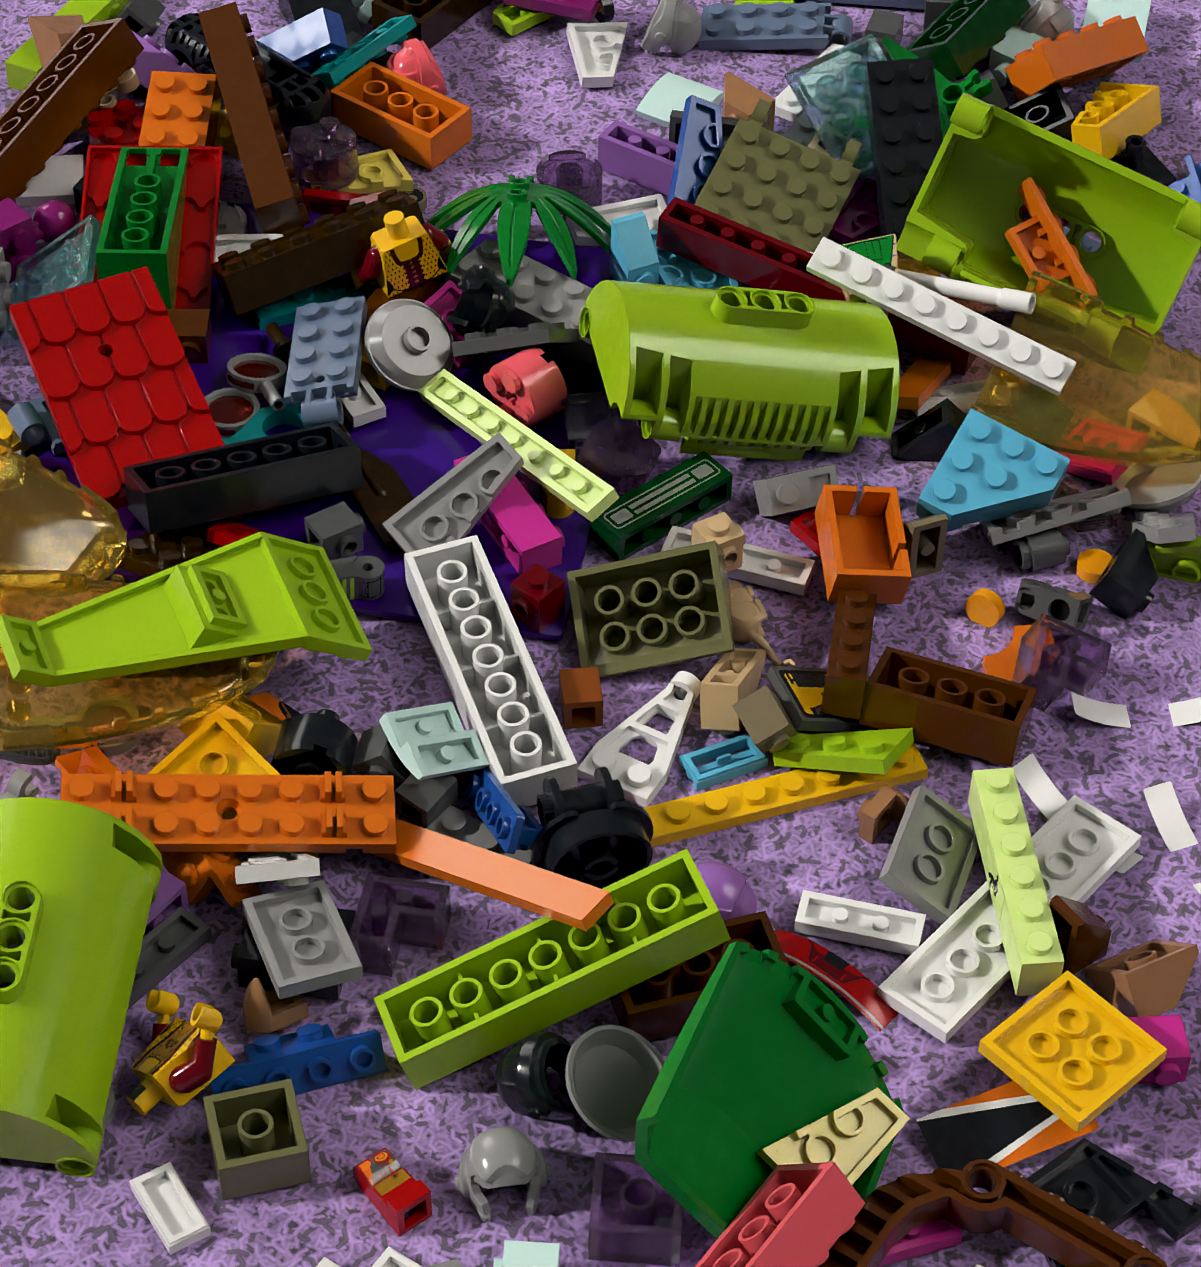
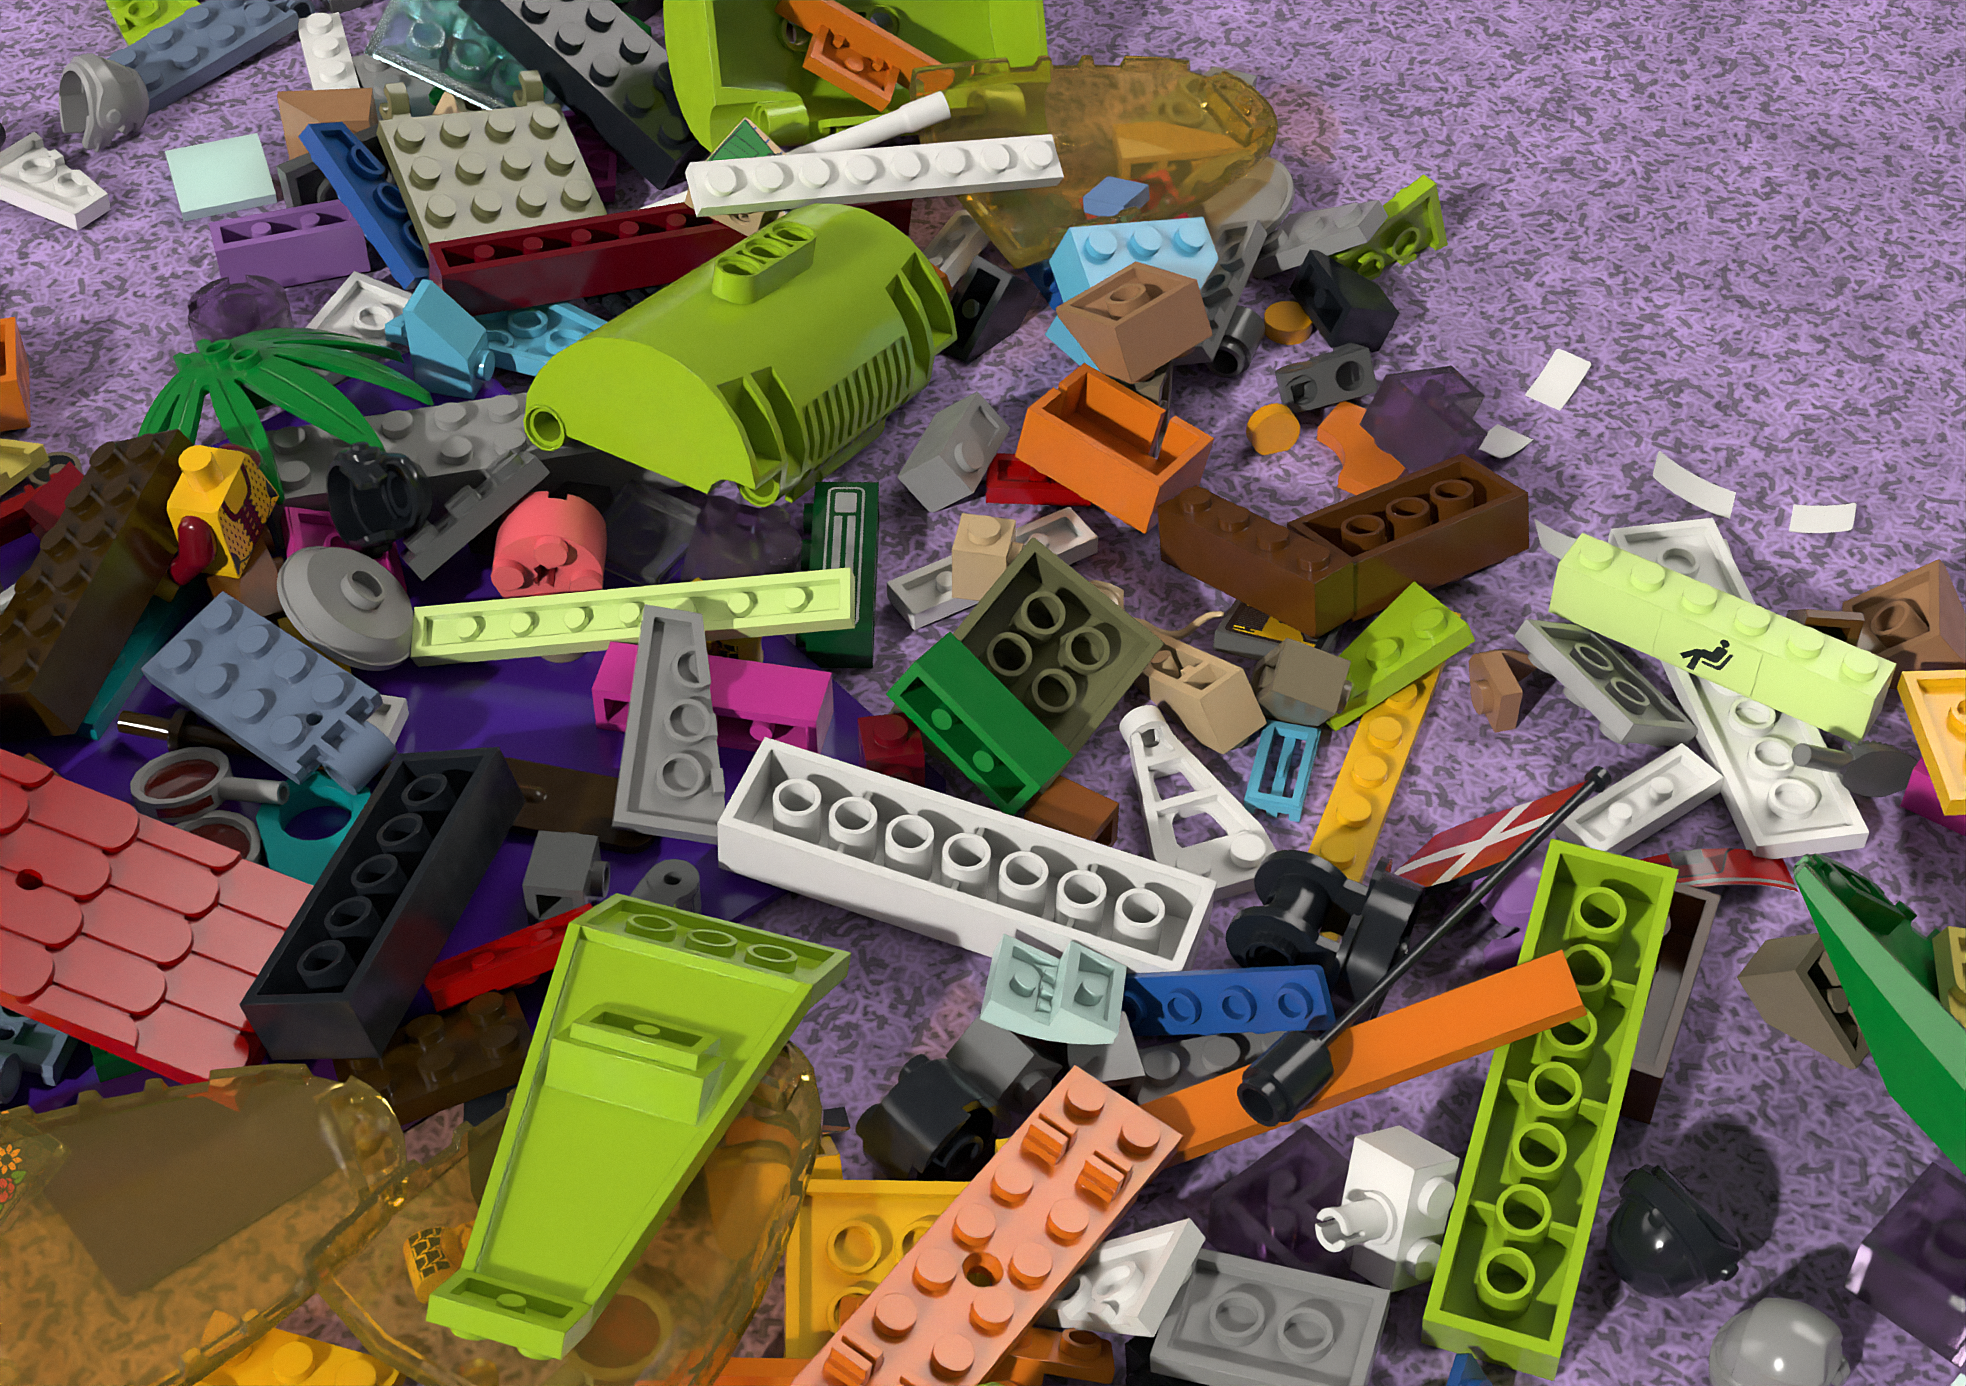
camera: 50 degrees left, 0 degrees up
(436, 942) = (1392, 1208): none -> white brick
(454, 848) = (1488, 846): none -> black flag
(582, 609) = (979, 724): none -> green brick
(610, 1078) = (1735, 1164): light grey piece -> none
(936, 482) = (1137, 320): none -> medium nougat slope
(982, 996) = (1865, 769): none -> dark grey piece
(1077, 423) = (1115, 195): none -> medium blue tile

